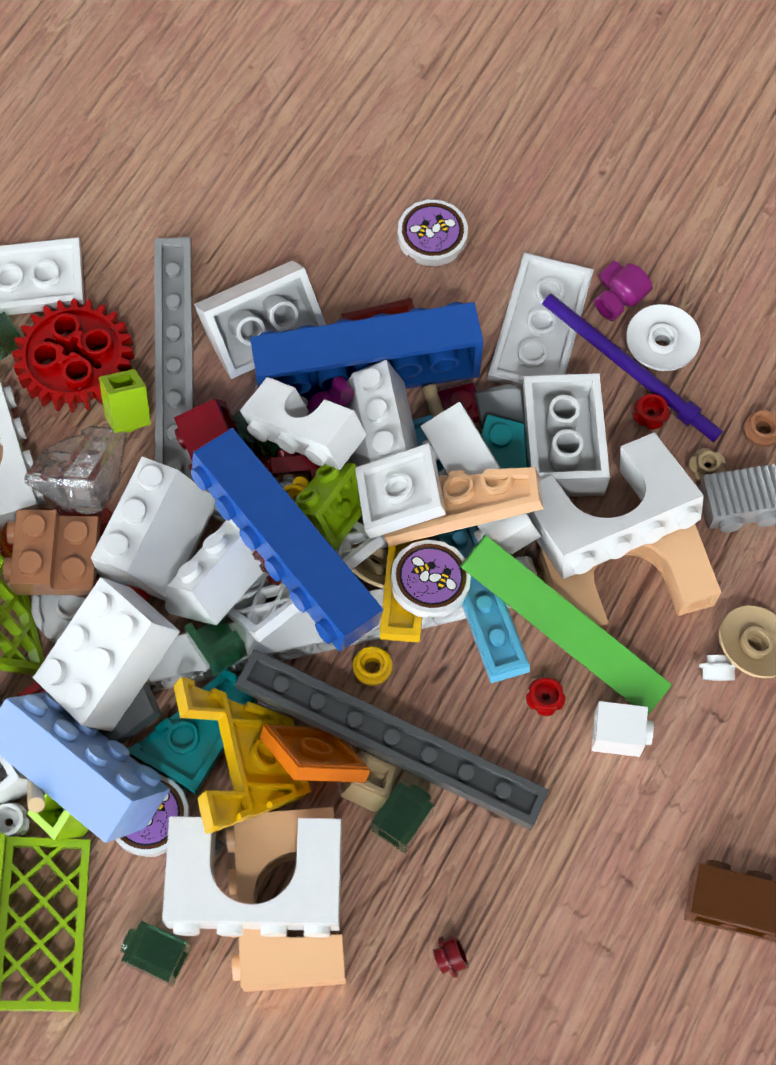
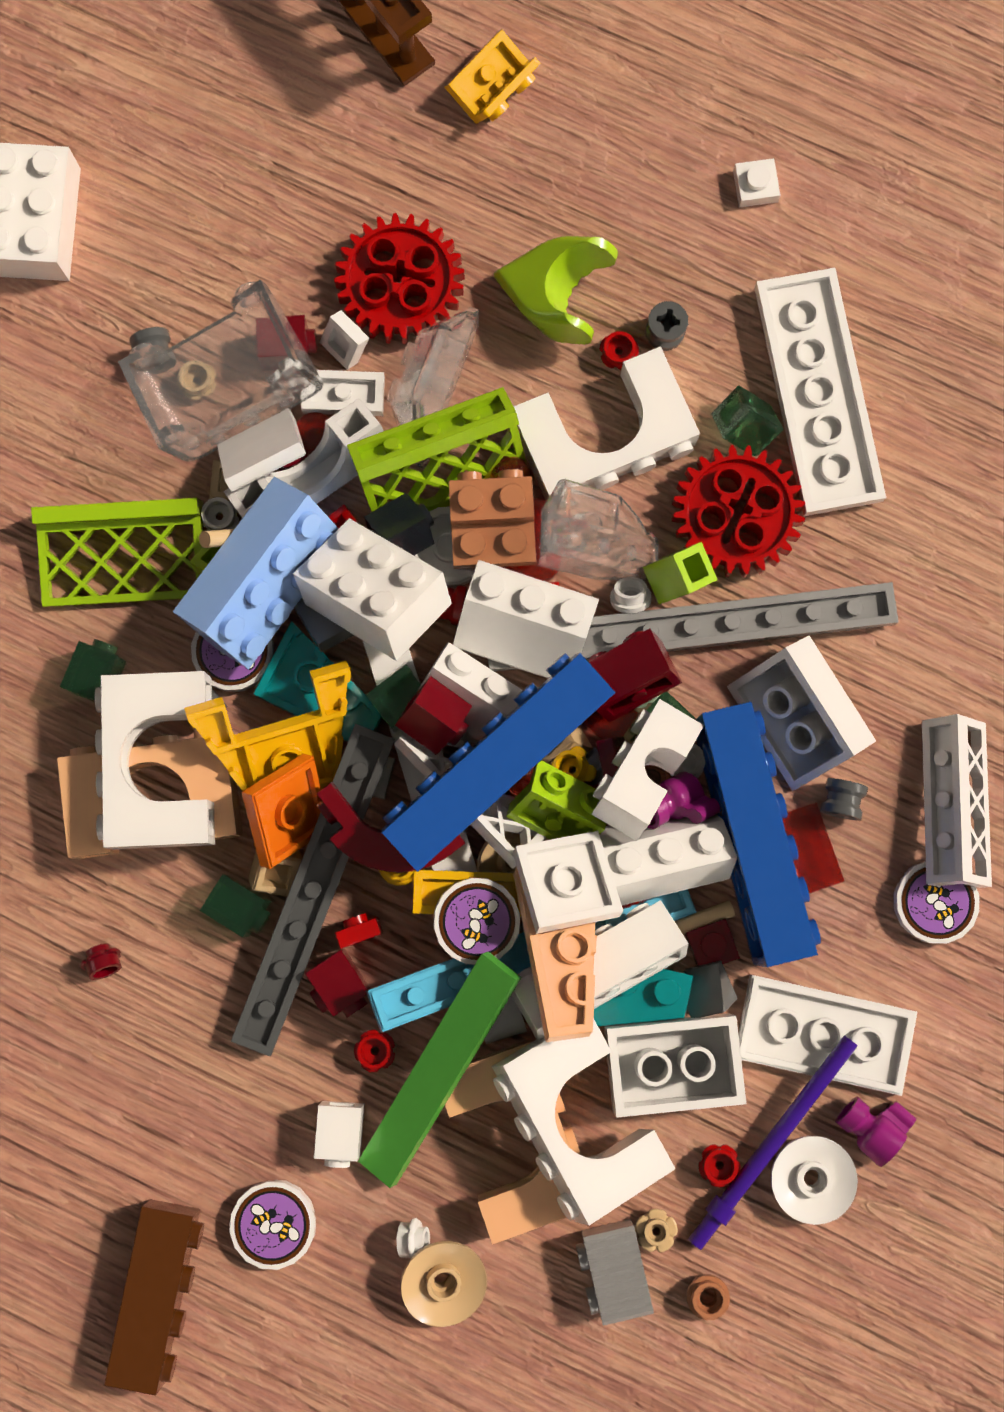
camera: 85 degrees right, 15 degrees up
(41, 632) = (403, 524): none -> black brick
(138, 445) = (630, 595): none -> white plate
(236, 599) = (435, 716): none -> dark red brick
(340, 290) = (844, 799): none -> dark grey wheel
(344, 683) = (365, 842): none -> dark red arch
(348, 208) = (951, 800): none -> white fence
(433, 703) = (358, 930): none -> red plate
(483, 723) = (338, 985): none -> dark red brick
(706, 798) = (273, 1224): none -> tile

